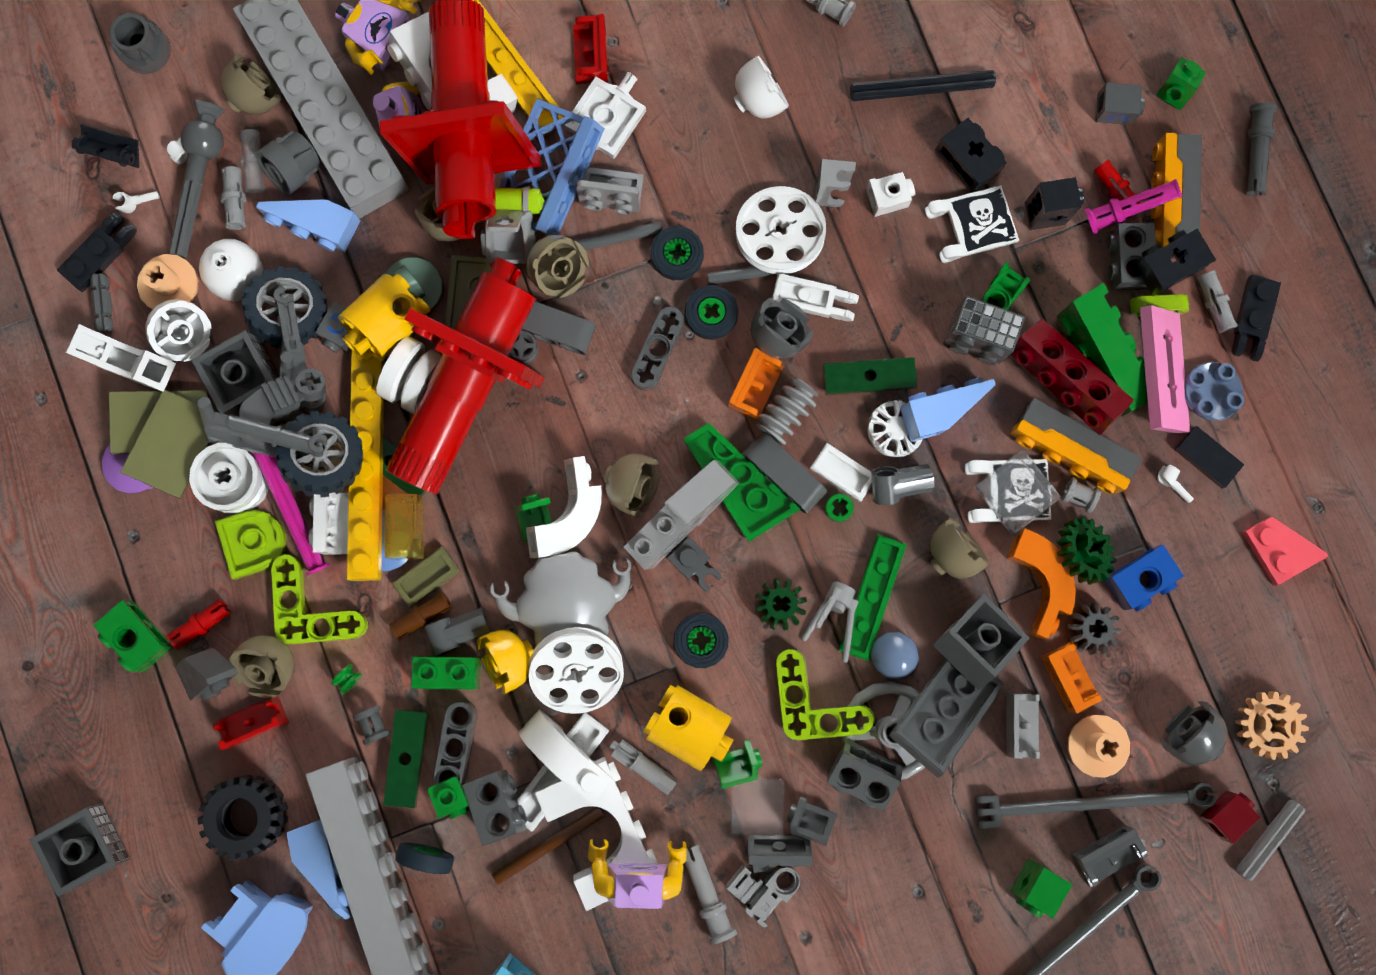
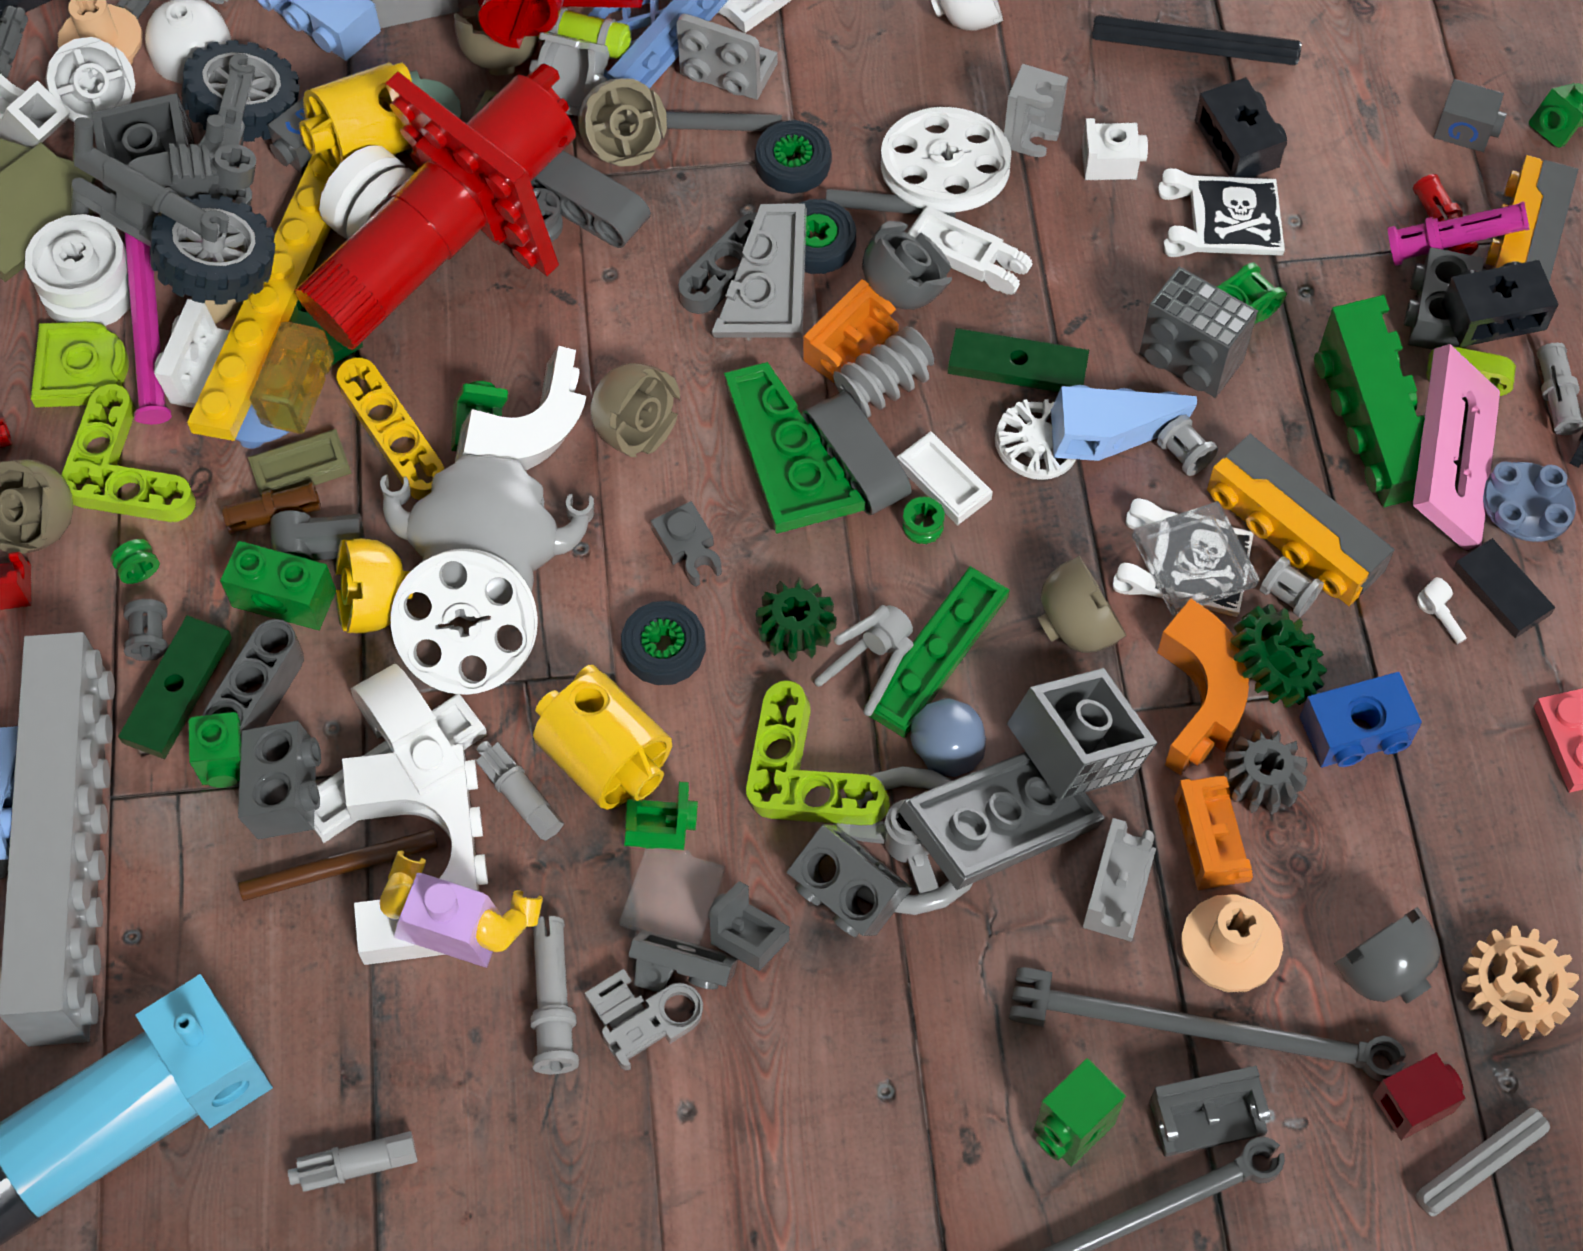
camera: 20 degrees right, 20 degrees down
(424, 858) = (148, 818): black bush -> none
(474, 538) = (386, 431): none -> yellow beam
(681, 515) = (697, 452): light grey brick -> none
(692, 359) = (769, 283): none -> light grey wing
(893, 483) = (1012, 502): dark grey piece -> none
(992, 410) = (1187, 445): none -> light grey bush
(1053, 203) = (1342, 202): black brick -> none
(1071, 376) = (1313, 420): dark red brick -> none

